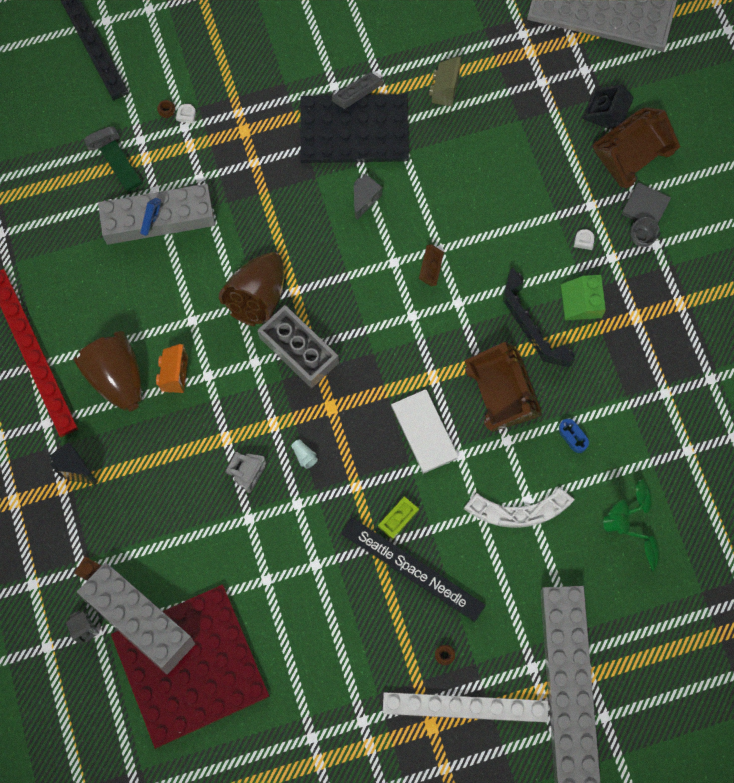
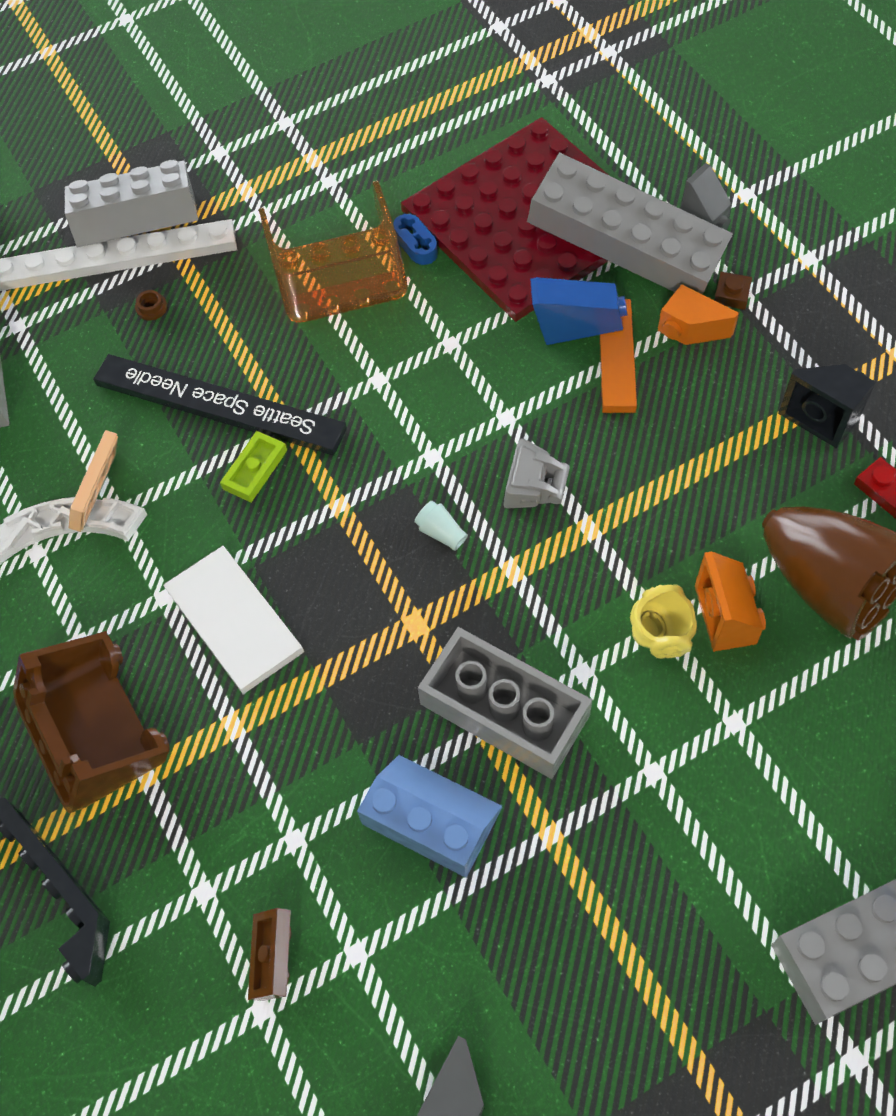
camera: 170 degrees right, 10 degrees down
(121, 550) = (696, 318): none -> orange slope
(173, 542) = (618, 368): none -> orange tile
(186, 565) = (576, 308): none -> blue slope
(208, 368) = (664, 621): none -> light yellow hair
(254, 289) = (625, 802): reddish brown cylinder -> none
(271, 662) = (420, 235): none -> blue beam
(320, 643) = (340, 271): none -> clear orange windscreen
(346, 308) = (429, 814): none -> medium blue slope
(447, 736) = (130, 203): none -> light grey brick
(489, 526) = (93, 481): none -> light nougat tile

